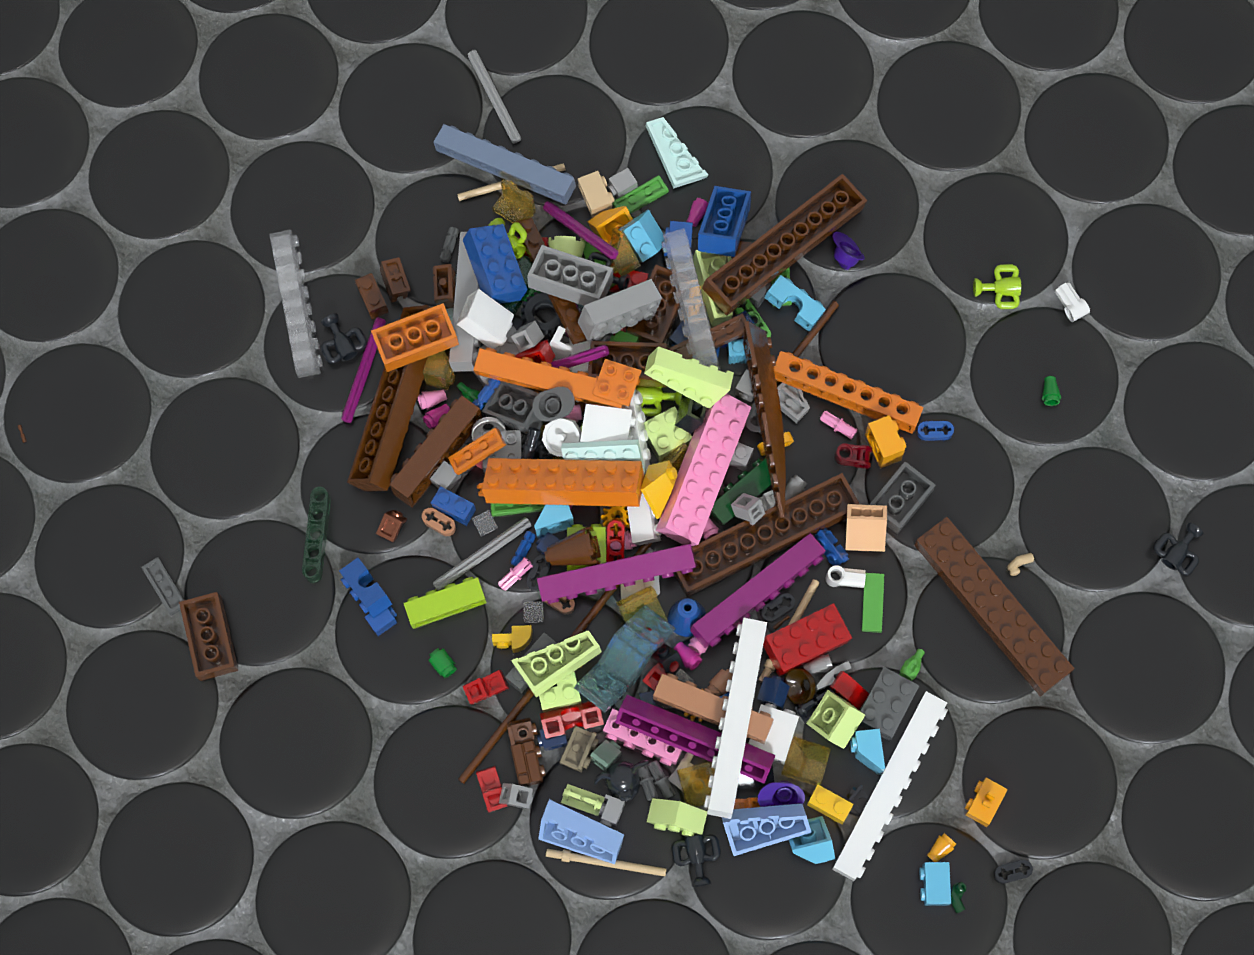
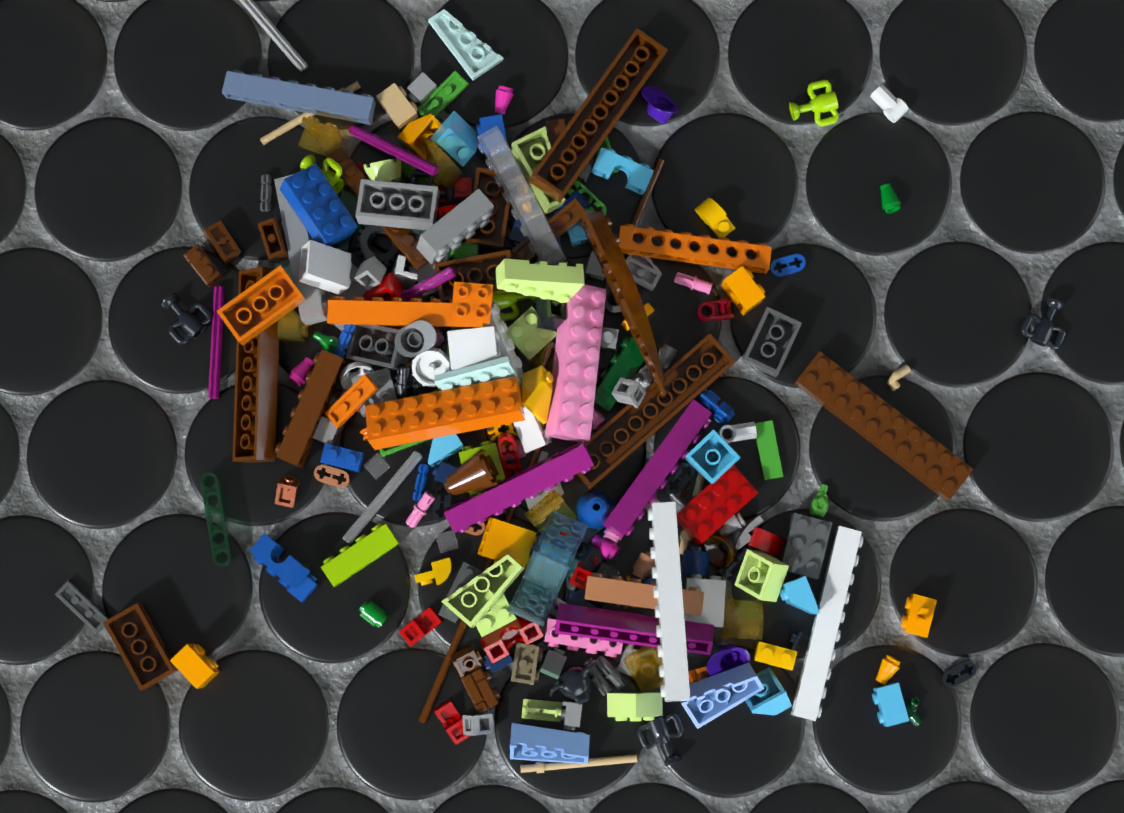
camera: 20 degrees left, 10 degrees up
(254, 665) = (195, 665): none -> light orange brick
(295, 304) = (129, 291): clear brick -> none
(431, 398) = (291, 355): bright pink cone -> none
(591, 618) = (504, 539): none -> light orange brick
(724, 221) = (533, 106): blue brick -> none
(814, 591) = (712, 457): none -> medium azure slope
(866, 527) = (745, 381): light nougat brick -> none
(875, 368) = (715, 218): none -> yellow brick

